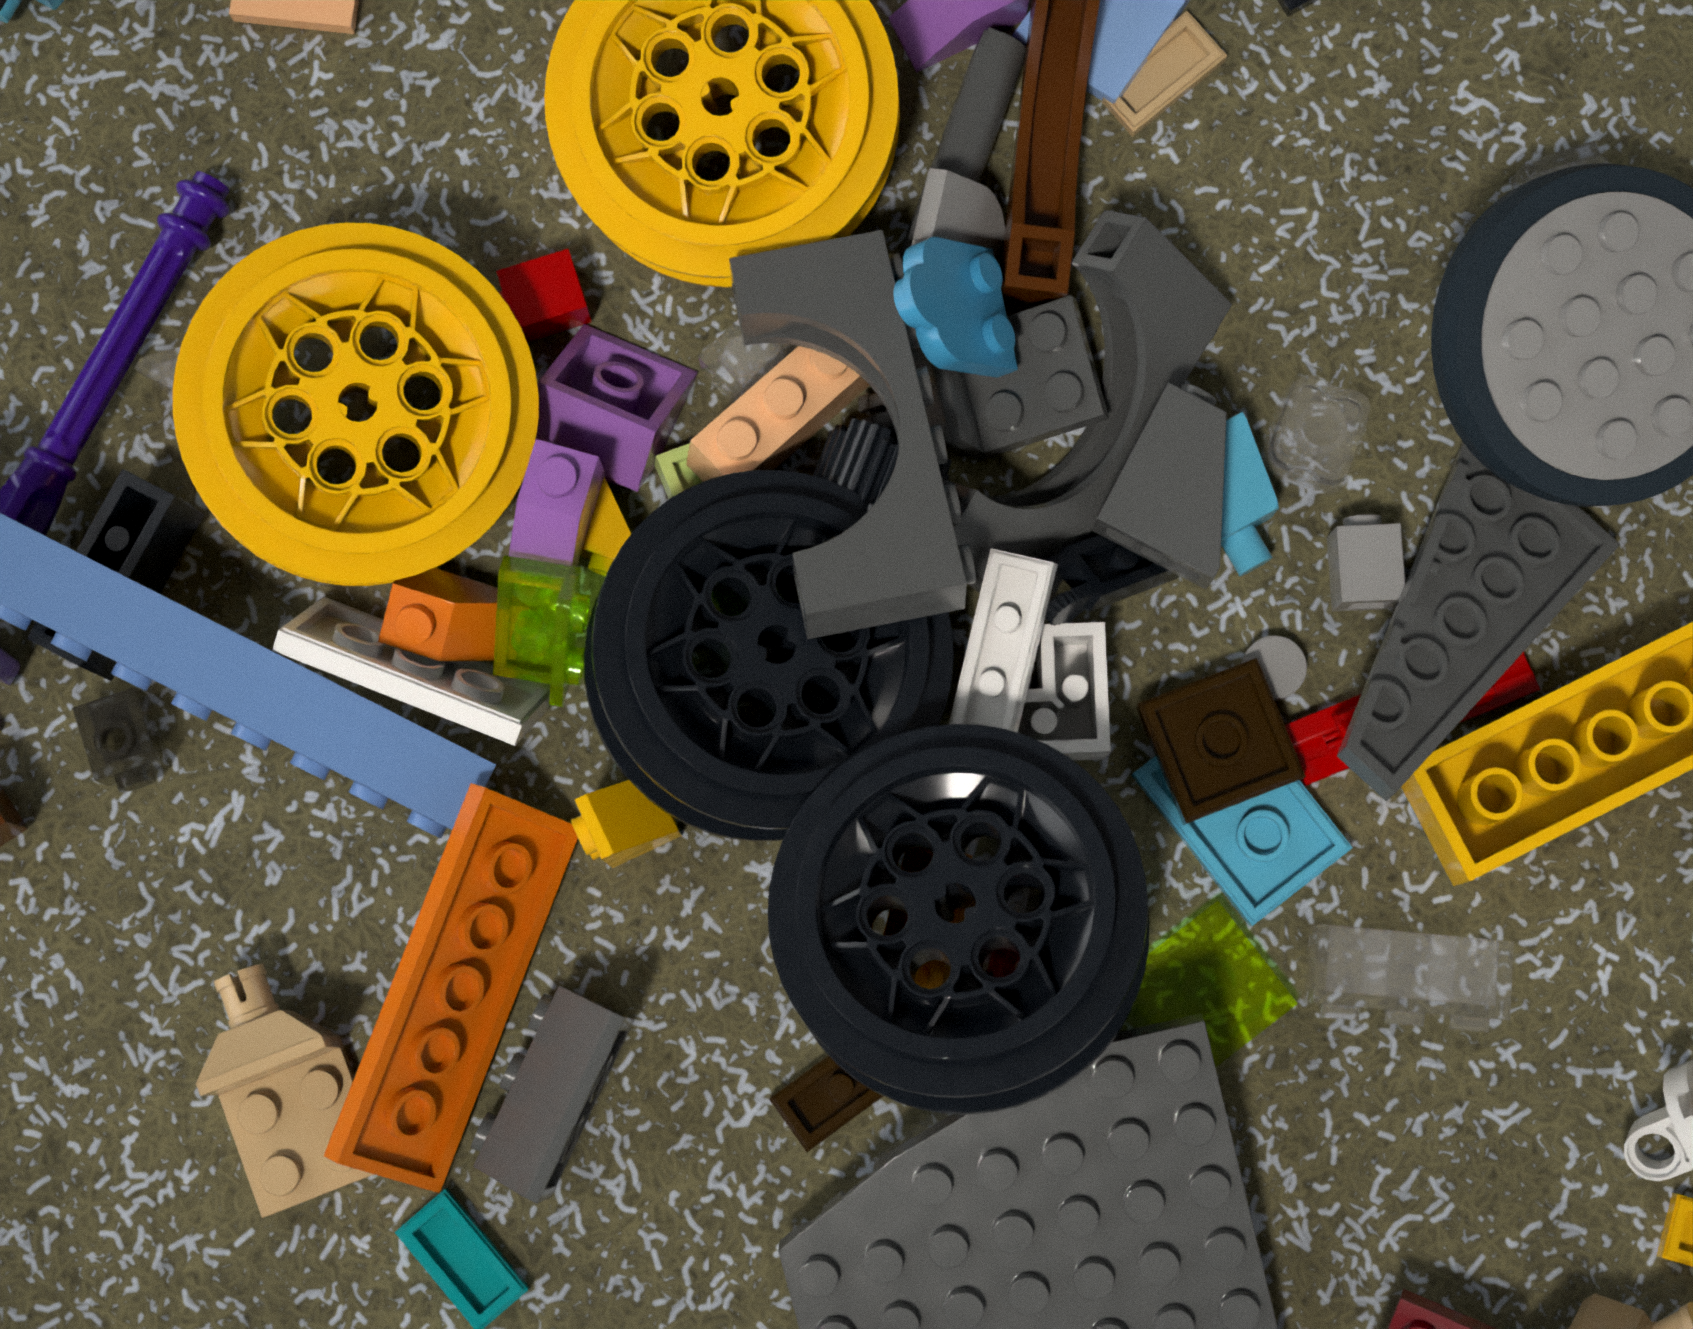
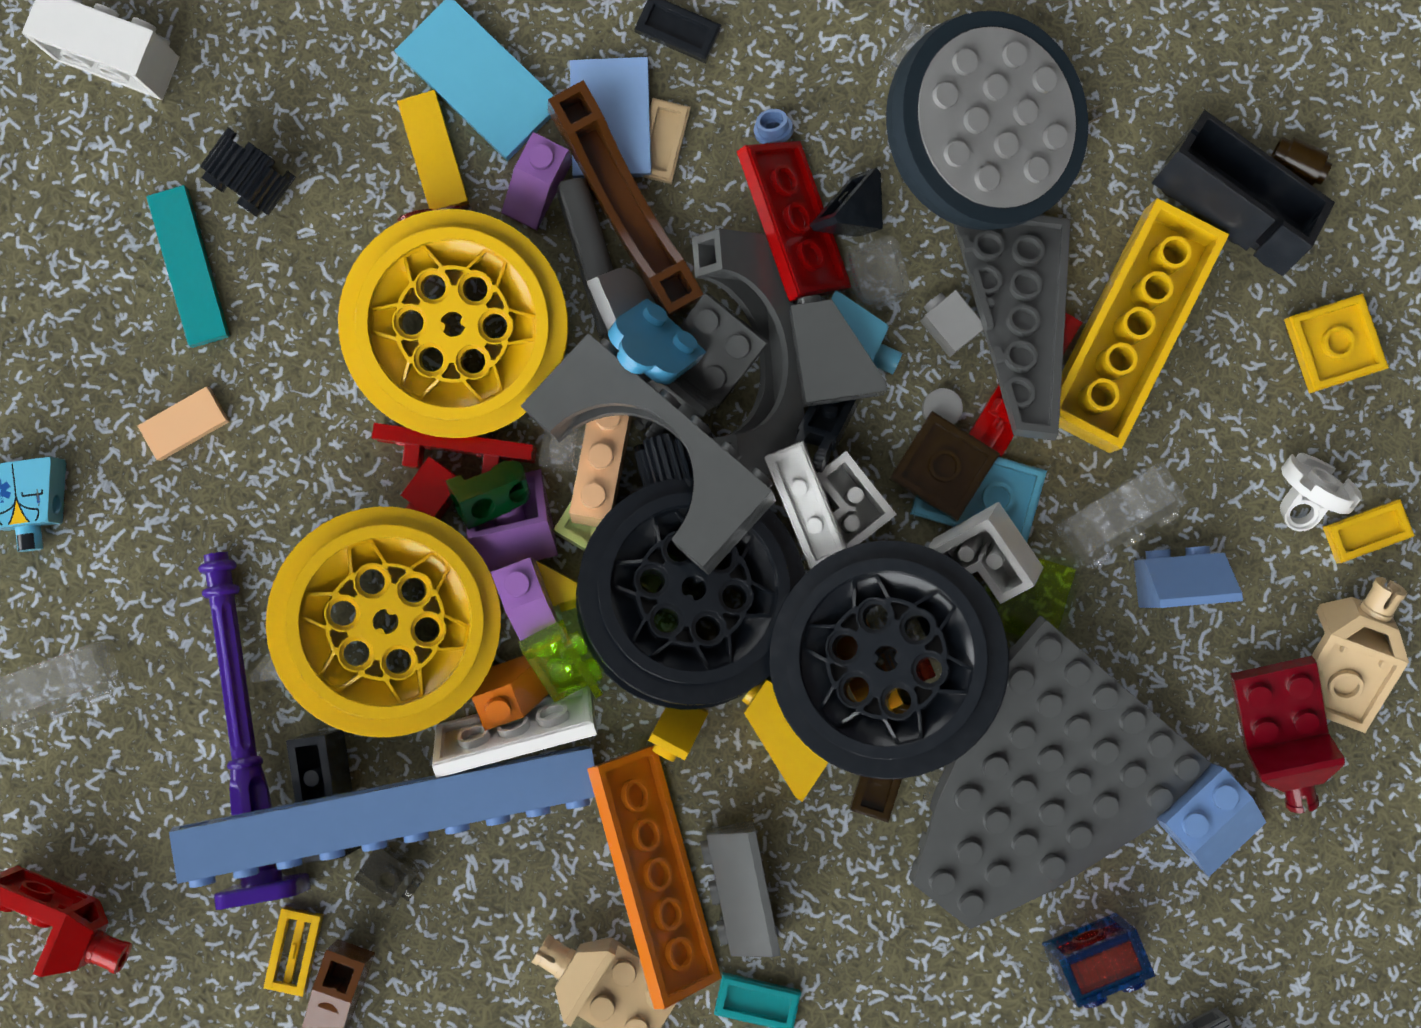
camera: 40 degrees left, 5 degrees up
(610, 348) = (489, 493): none -> dark green leg
(653, 301) = (415, 443): none -> red hinge
(744, 971) = (791, 756): none -> yellow slope
(1205, 894) = (994, 549): none -> white brick
(1255, 285) = (787, 206): none -> red tile
(1314, 155) = (773, 127): none -> medium blue plate
(1345, 330) = (855, 208): none -> black slope
(1432, 1120) = (1186, 579): none -> medium blue slope

